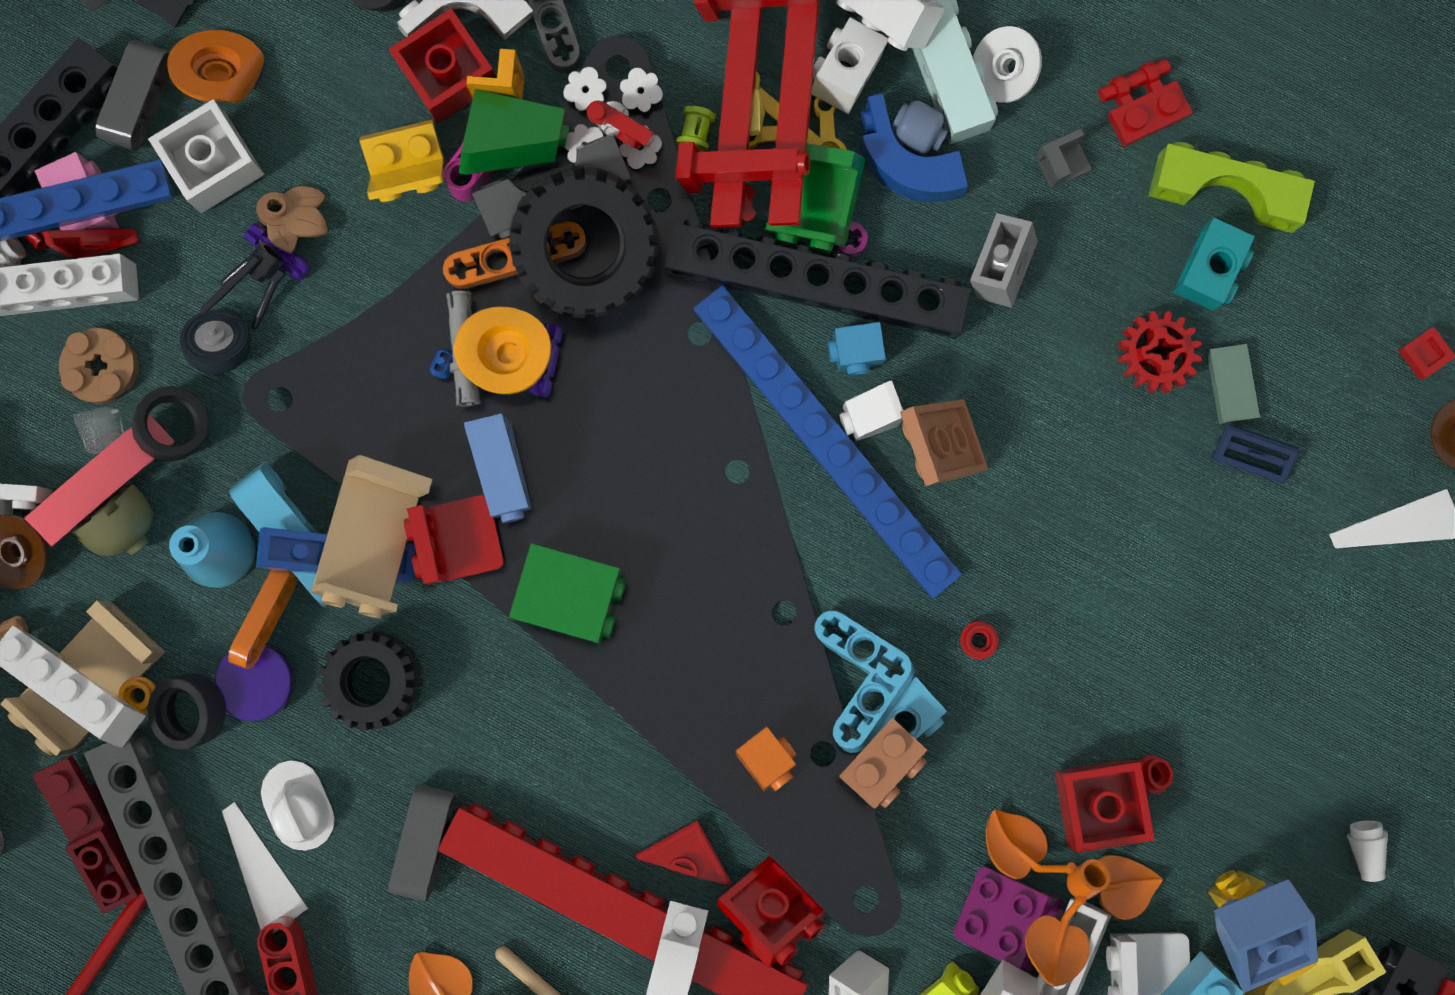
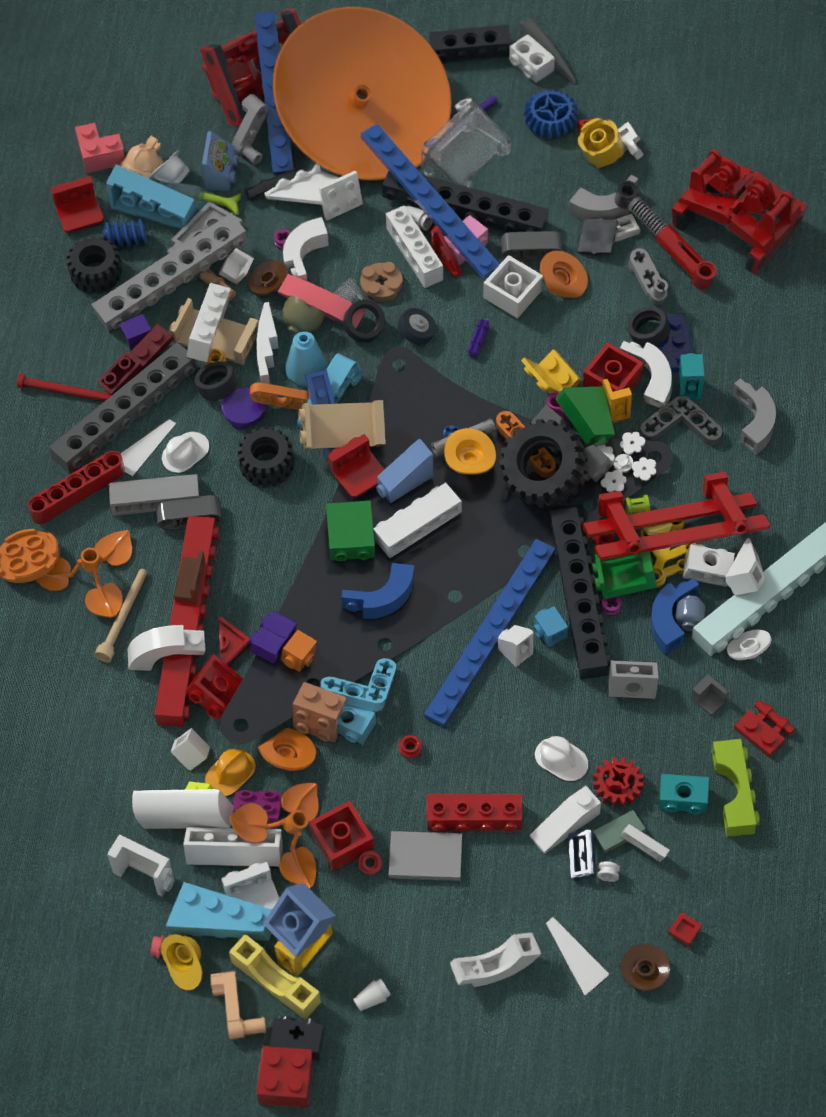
camera: 70 degrees right, 25 degrees down
(26, 814) = (135, 330): none -> dark purple panel
(138, 599) = (265, 343): none -> white slope
(260, 265) = (465, 329): black plant -> none
(295, 219) = (500, 339): medium nougat plate -> none
(359, 888) = (144, 494): none -> light grey brick
(543, 385) = (474, 479): dark purple axle -> none
(564, 890) = (190, 579): none -> reddish brown panel
(589, 480) = (417, 520): none -> white brick
(630, 130) = (616, 460): red plate -> none
(707, 561) = (385, 600): none -> blue arch
(727, 792) = (273, 636): none -> dark purple brick
(919, 937) = (231, 771): none -> light orange piece
(924, 834) = (289, 750): none -> orange hat
(943, 441) = (513, 678): nougat plate -> none
(1079, 420) = (561, 758): none -> white piece
(1131, 586) = (474, 812): none -> red brick
(1168, 685) = (425, 855): none -> light grey tile
(1192, 453) = (566, 819): none -> white slope
(1279, 355) = (644, 842): none -> white tile
(1297, 425) = (609, 871): none -> white bush
(1387, 648) = (498, 964): none -> white arch

